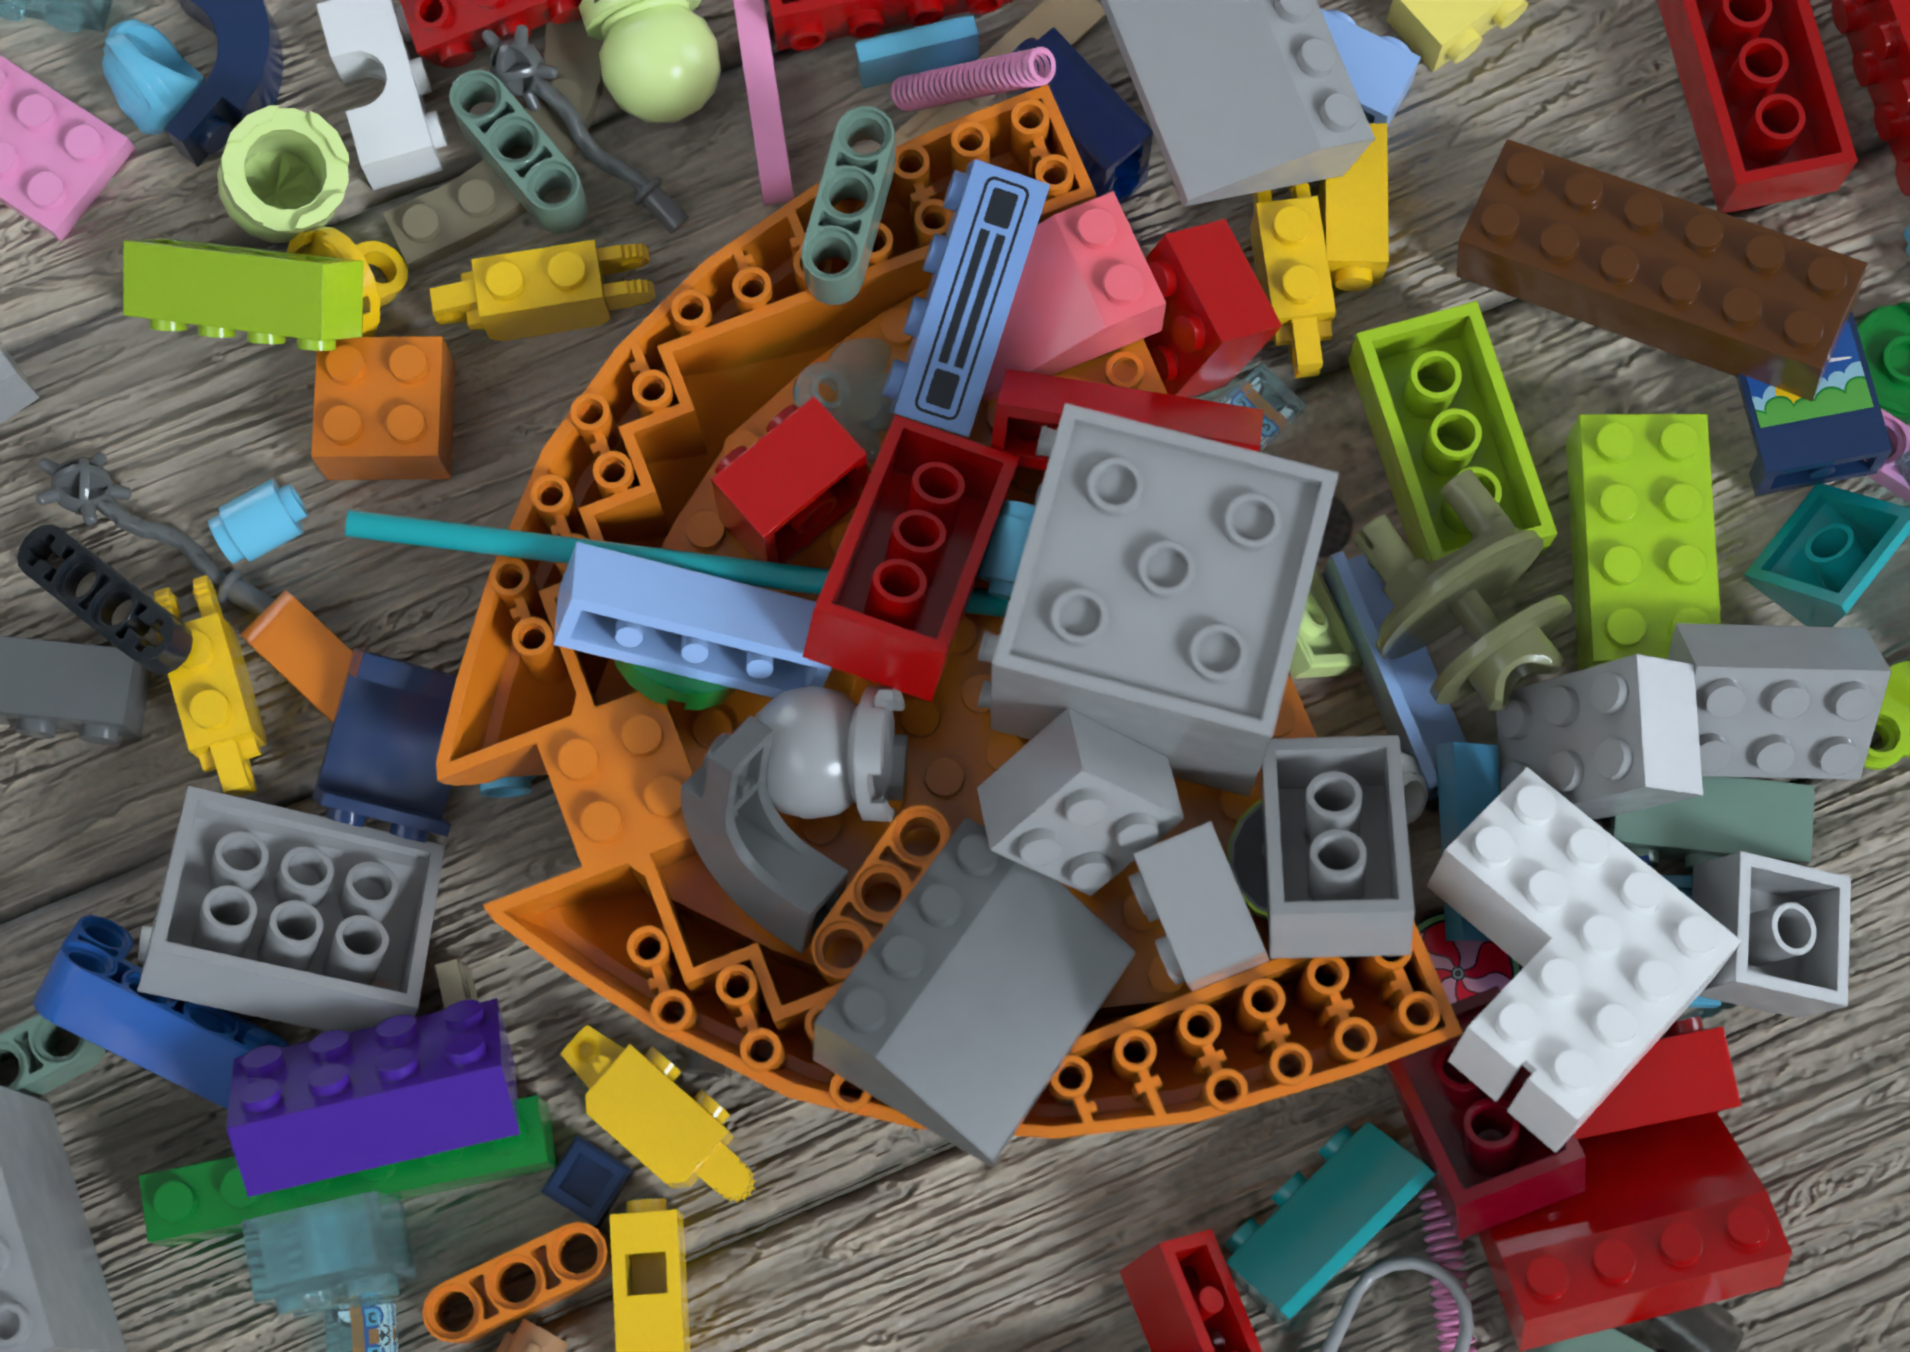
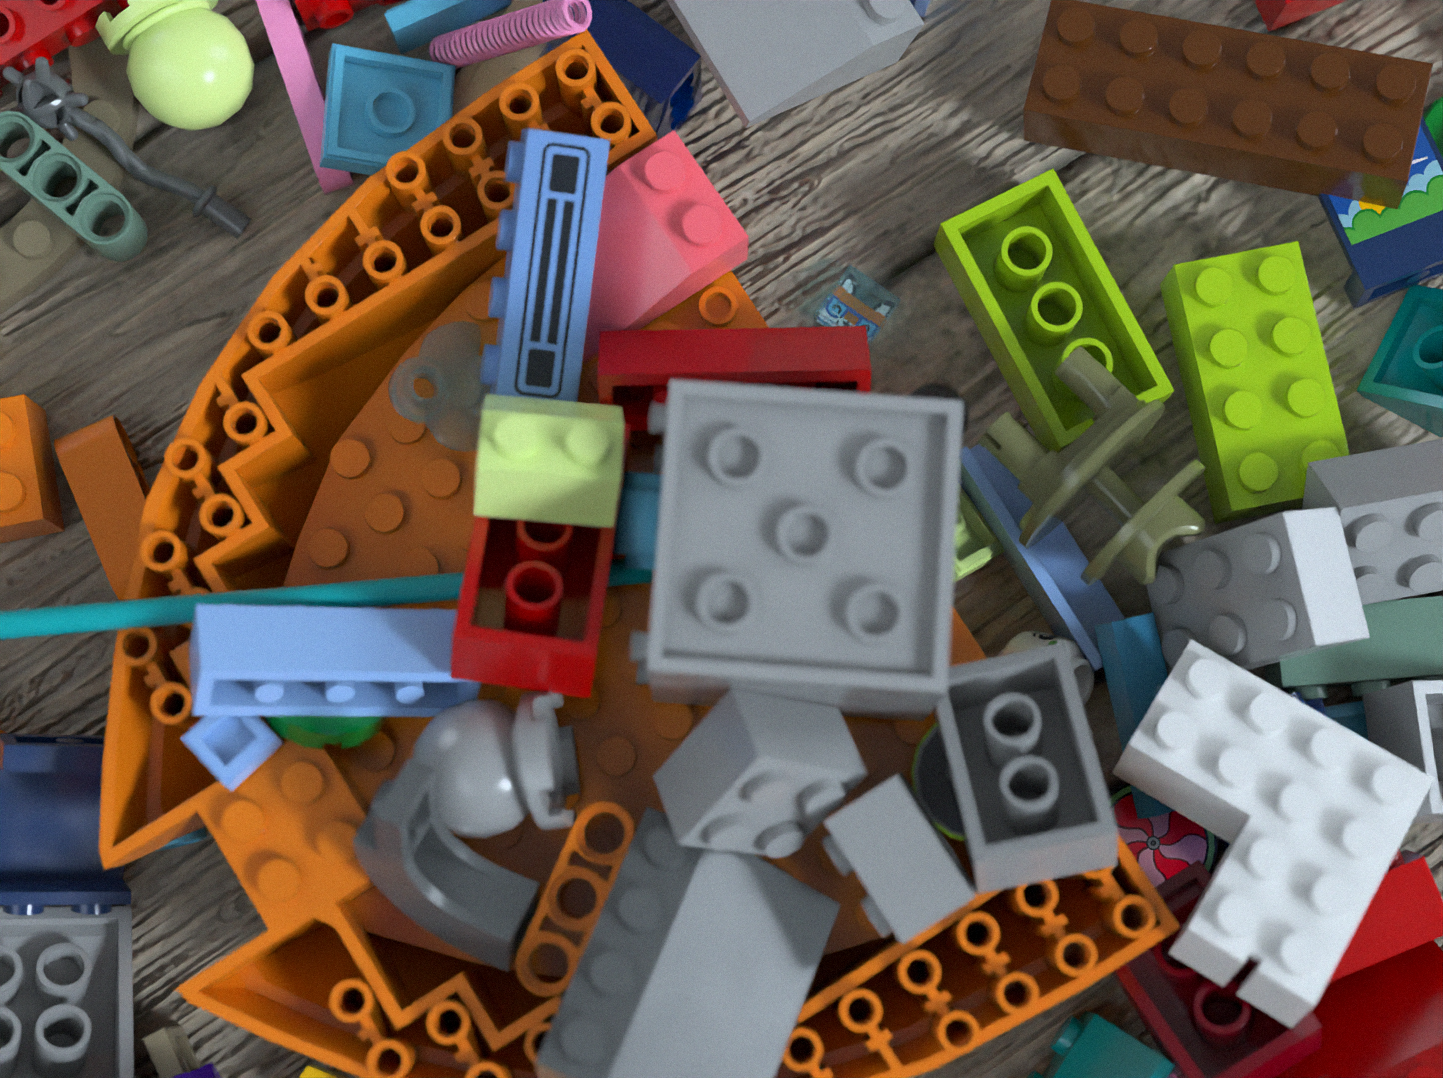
camera: 15 degrees left, 5 degrees up
(501, 444) = (108, 492): none -> orange beam
(543, 290) = (117, 324): yellow hinge -> none
(582, 684) = (232, 745): none -> light blue tile
(790, 483) = (402, 493): red brick -> none
(810, 119) = (380, 106): none -> medium azure tile
(844, 177) = (400, 166): sand green beam -> none
(934, 473) = (549, 461): none -> yellowish green slope
(1212, 310) = (793, 225): red brick -> none
(1294, 273) = (866, 173): yellow hinge -> none
(1357, 218) = (917, 104): yellow brick -> none

